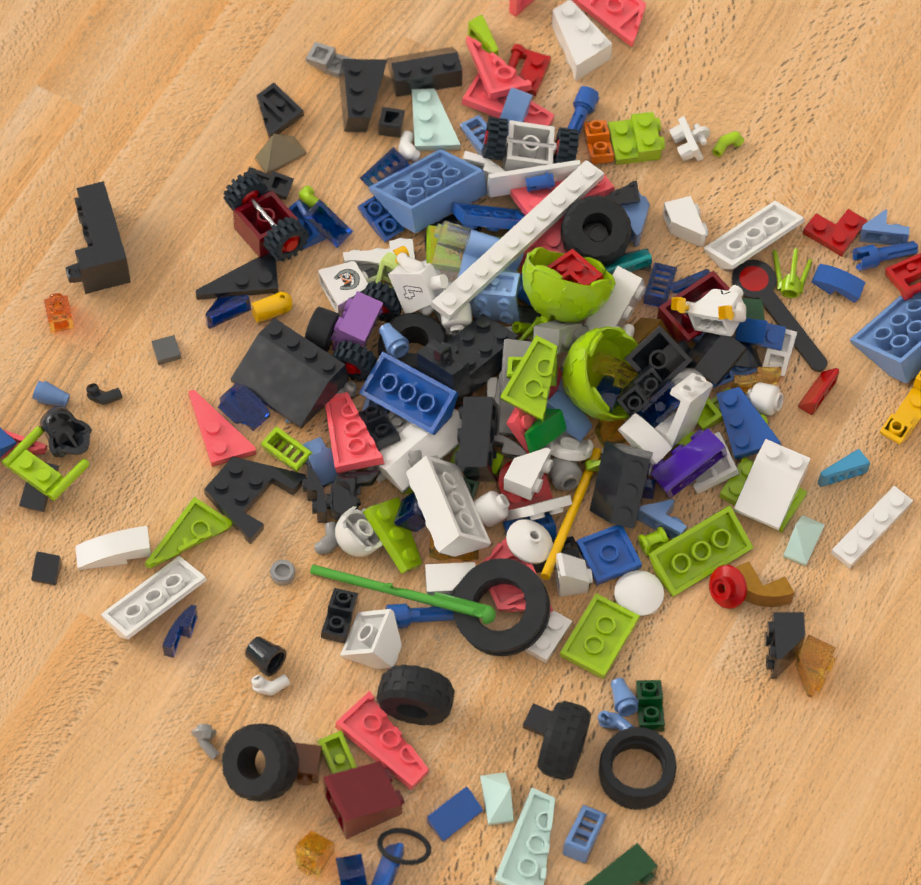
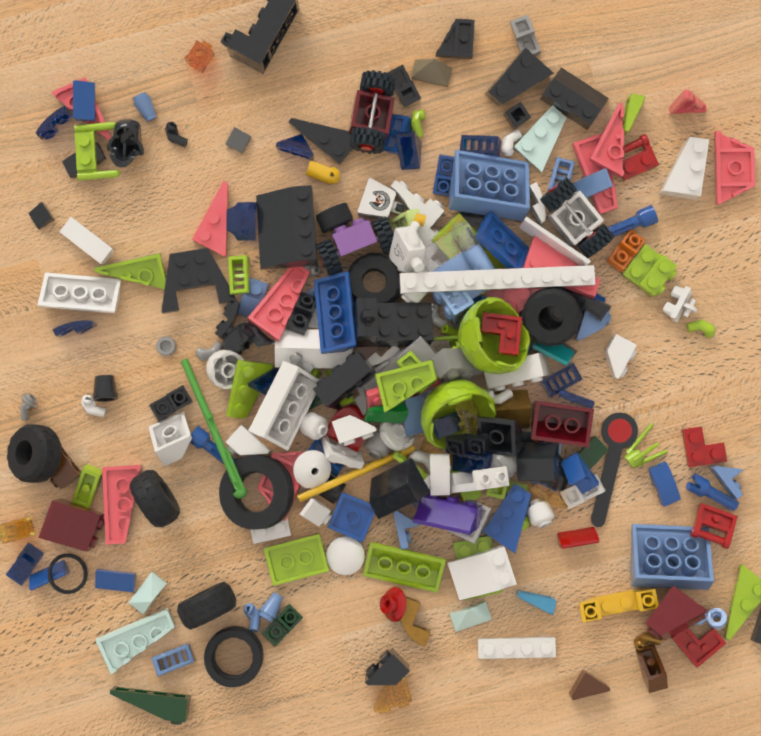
camera: 45 degrees right, 25 degrees up
(394, 342) = (359, 271): medium blue cone -> none
(537, 719) = (214, 573): black tile -> none
(540, 182) = (553, 251): blue pin -> none
(652, 541) = (384, 534): lime bush -> none
(716, 312) = (561, 441): white torso -> none
(753, 235) = (648, 404): white slope -> none

